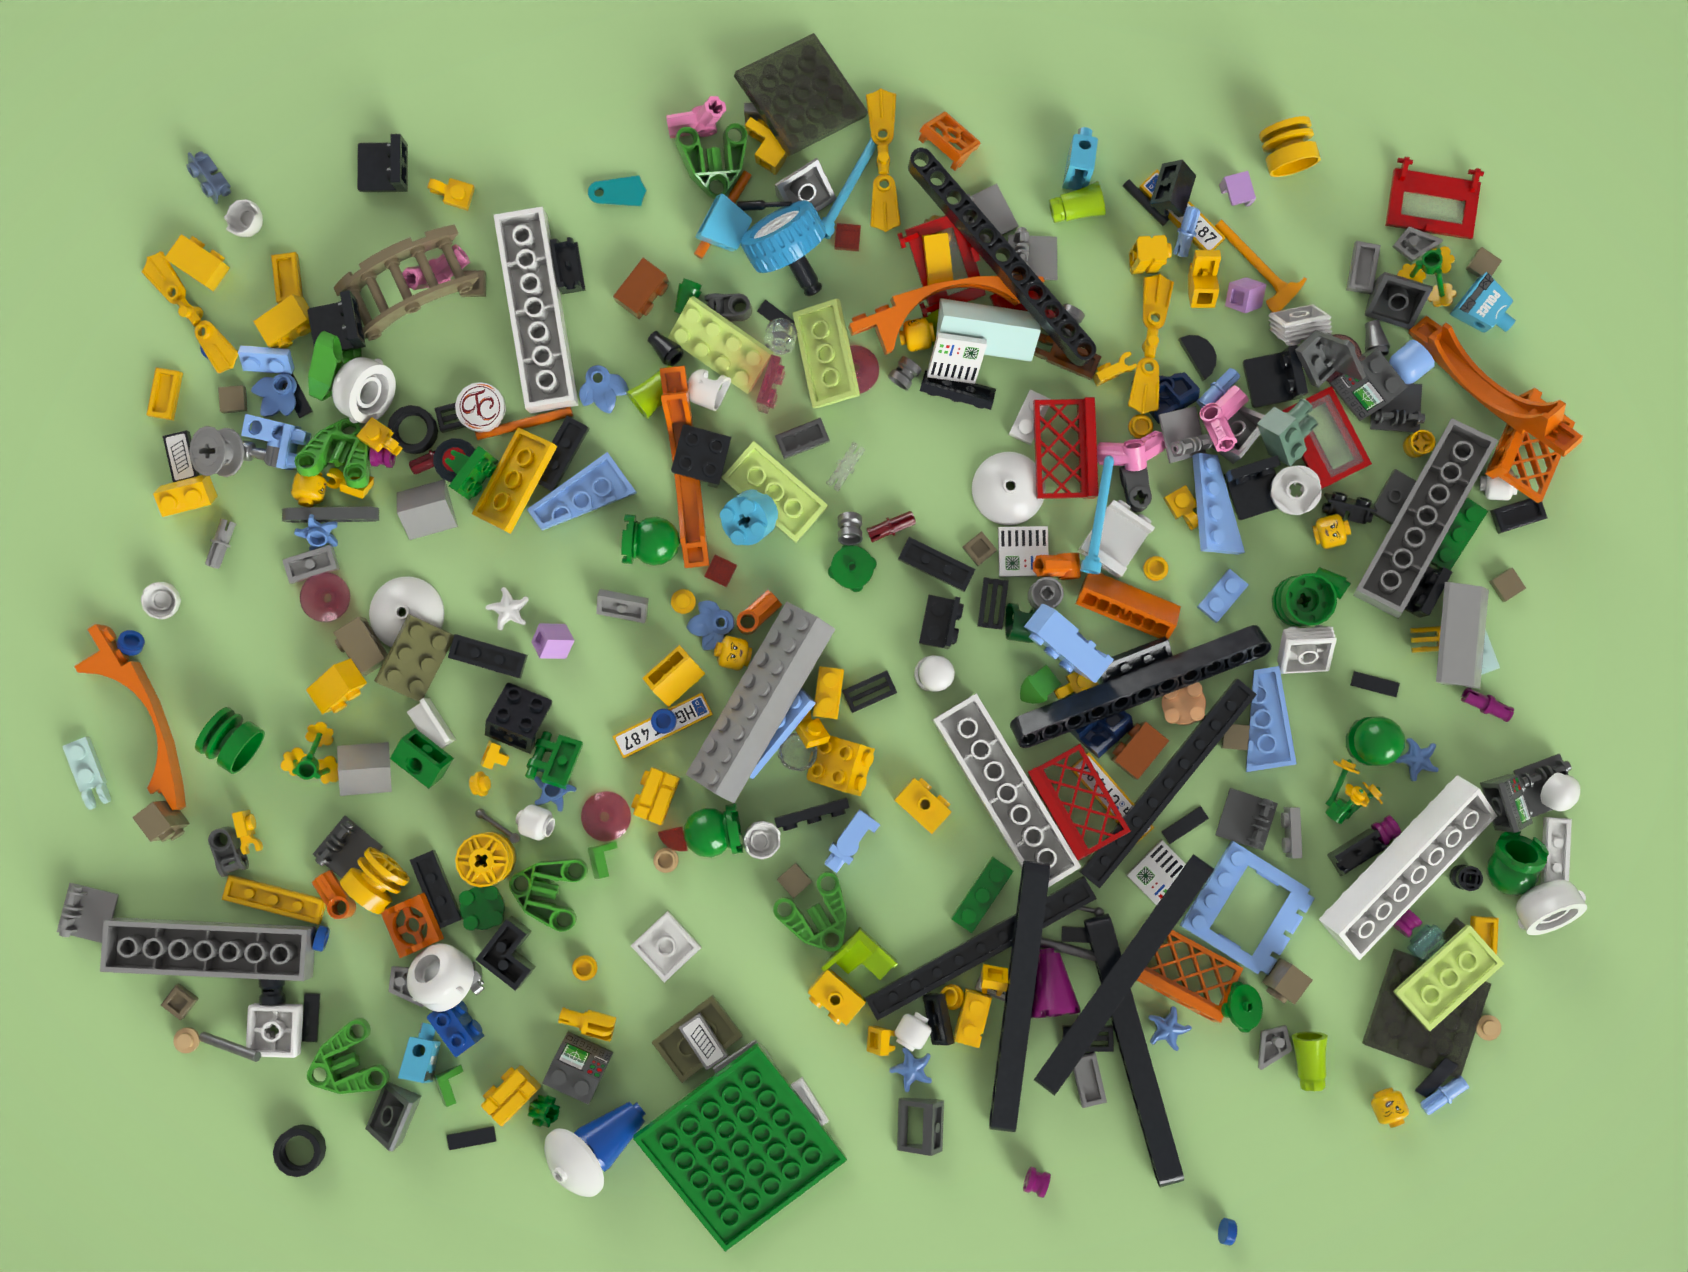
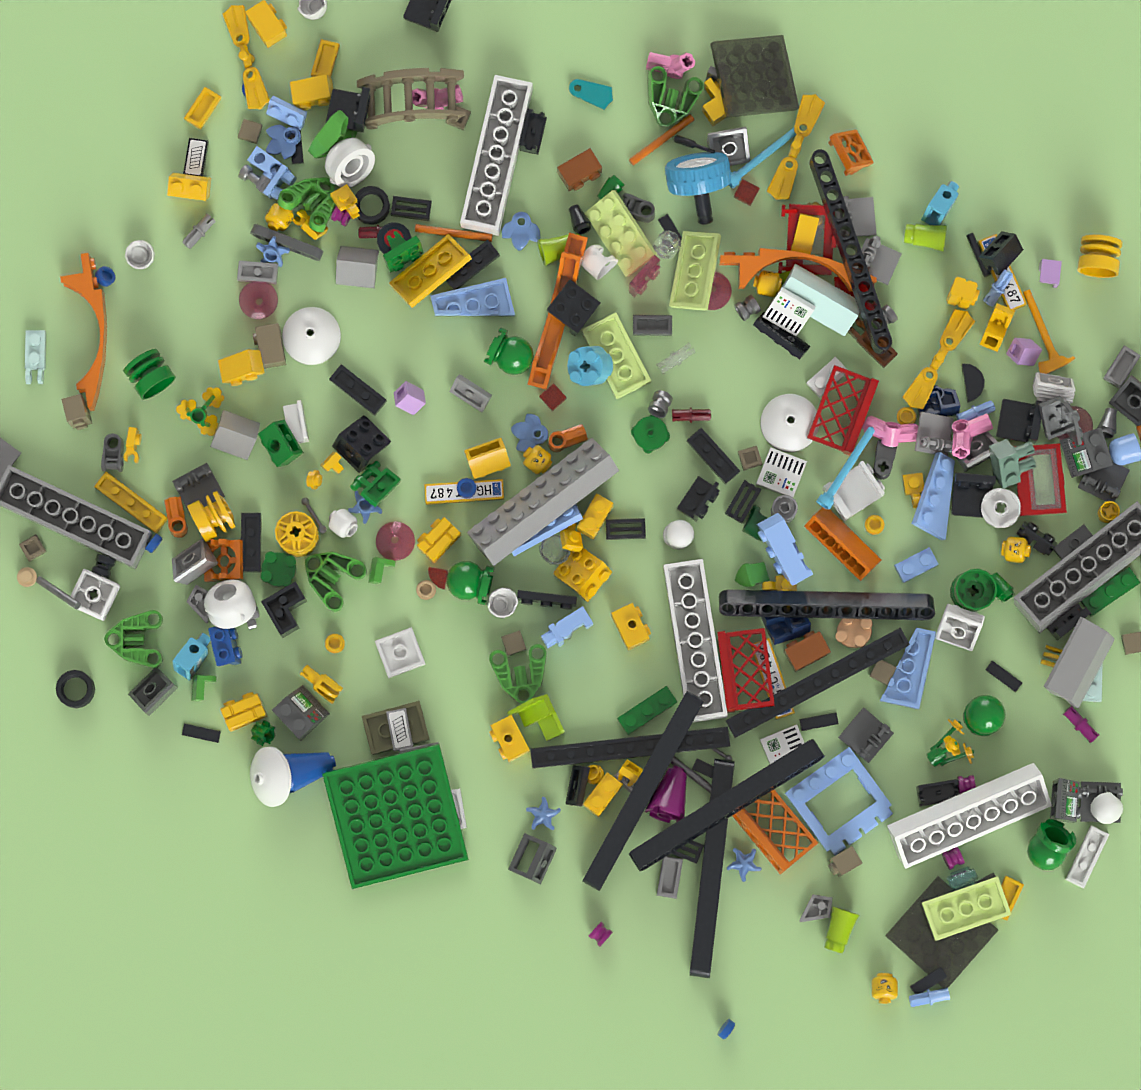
camera: 30 degrees right, 5 degrees down
(216, 451) = (224, 154): light grey piece -> none
(310, 1017) = (121, 598): black window -> none
(376, 944) = (193, 562): none -> light grey slope
(414, 658) = (305, 369): olive plate -> none
(455, 193) = (472, 47): yellow plate -> none
(480, 407) = (427, 208): white tile -> none
(508, 609) = (386, 362): white animal -> none
(683, 601) = (516, 408): yellow plate -> none
(724, 224) = (659, 147): medium azure torso -> none
(878, 1040) = (527, 783): yellow tile -> none
(913, 1031) = (555, 786): white head -> none
(1062, 565) = (802, 492): orange piece -> none
(1108, 372) = (901, 367): yellow plate -> none
(1137, 658) = (828, 583): black plate -> none
(1243, 1007) = (805, 868): green piece -> none
(1292, 823) = (892, 765): light grey plate -> none
(1418, 759) = (1012, 743): medium blue animal -> none
(1461, 875) = (1009, 845): black wheel -> none
(1488, 1027) = (983, 961): tan plate -> none
(1549, 906) = (1062, 887): white piece -> none

